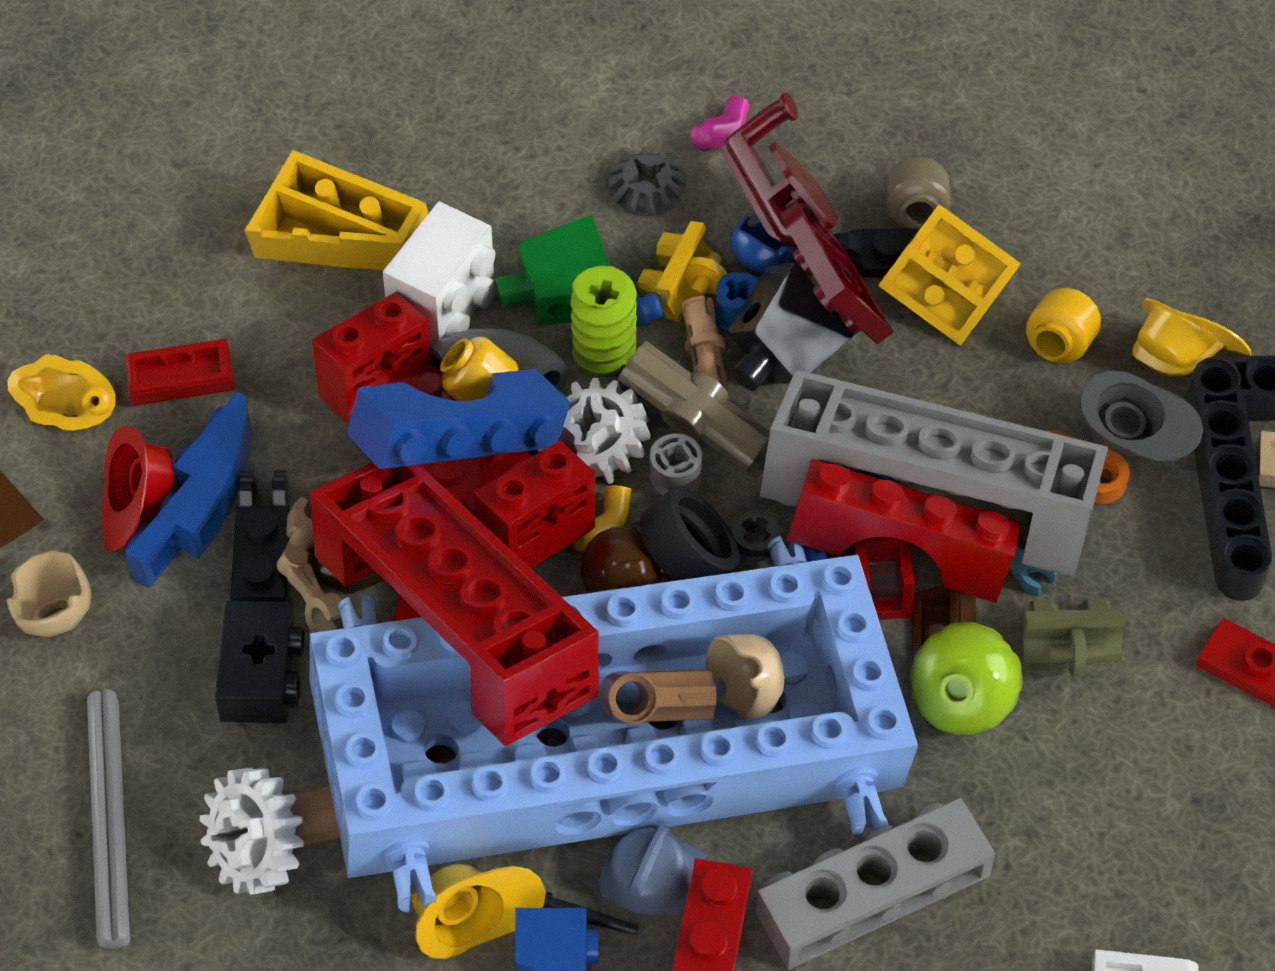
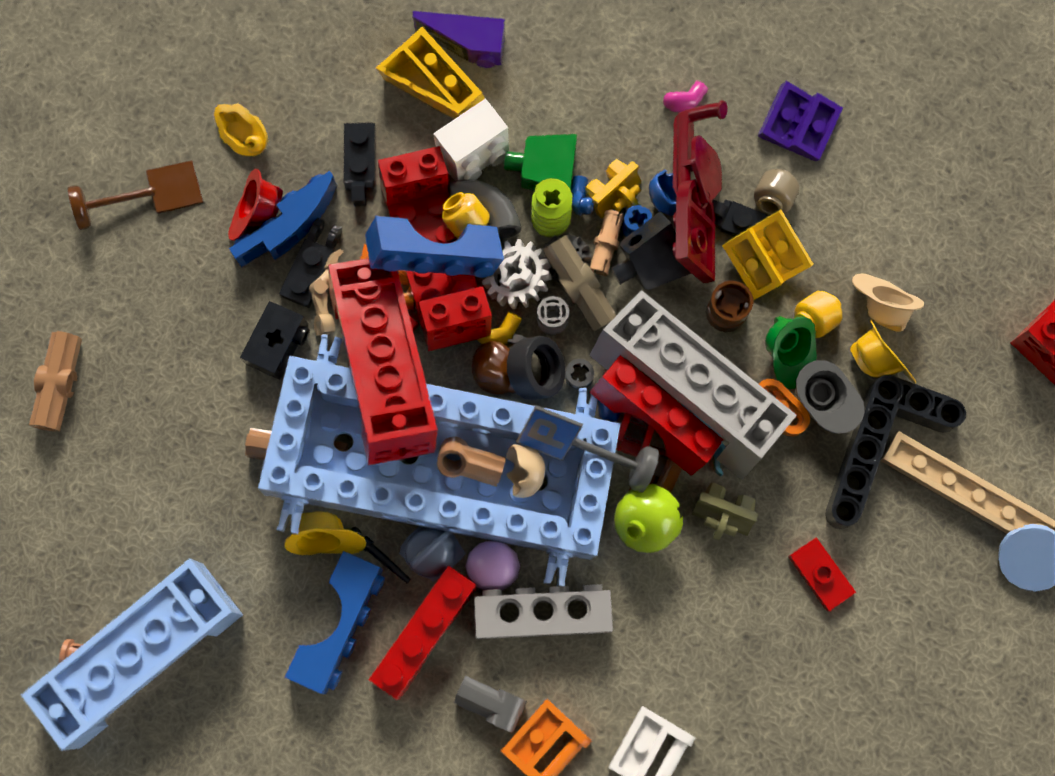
camera: 25 degrees right, 20 degrees up
(45, 584) = (182, 245): tan hair -> none
(108, 820) = (163, 398): light grey axle -> none
(179, 372) = (309, 140): red plate -> none
(251, 830) = (226, 445): white gear -> none
(270, 373) = (359, 160): none -> black hinge
(373, 147) = (470, 37): none -> dark purple slope
(644, 197) = (615, 127): dark grey gear -> none
(762, 842) = (492, 565): none -> lavender hair
(768, 593) = (556, 434): none -> dark grey piece
(903, 99) = (800, 121): none -> dark purple slope
(931, 357) = (729, 306): none -> reddish brown wheel
(1048, 376) = (791, 347): none -> green piece
(1154, 277) = (886, 302): none -> tan piece

